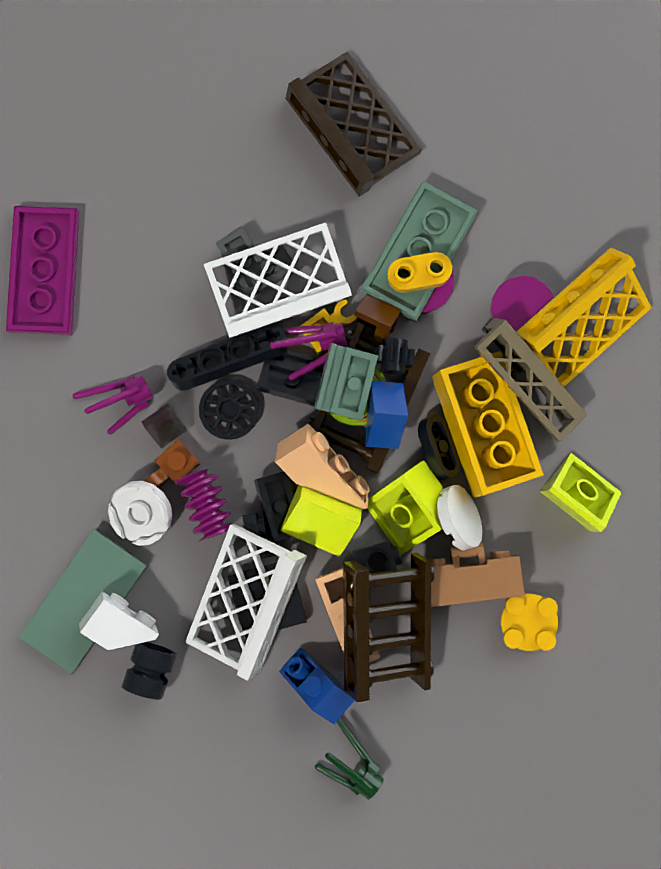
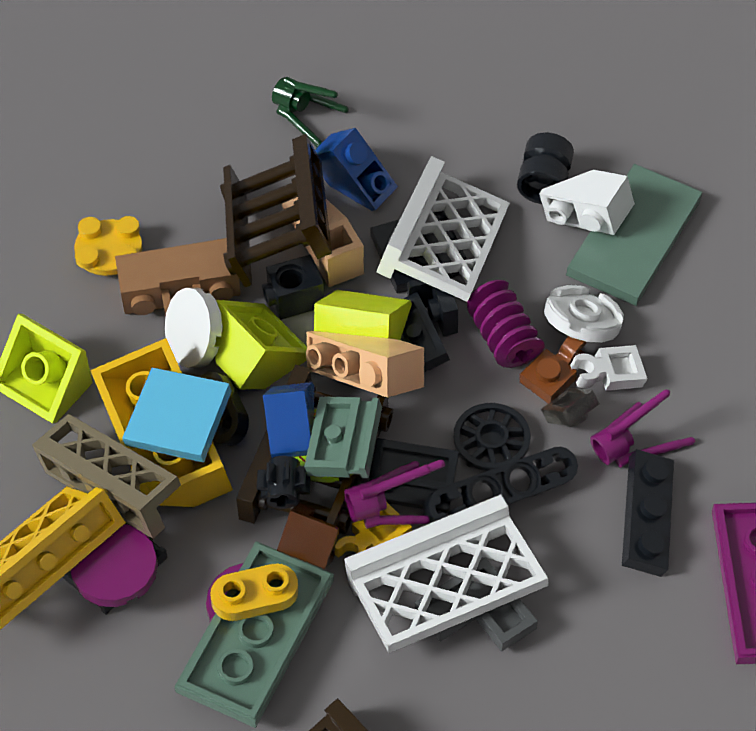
camera: 175 degrees right, 30 degrees down
(119, 330) = (648, 513): none -> black plate
(122, 459) = (614, 366): none -> white plate
(475, 416) = (177, 414): none -> medium azure tile

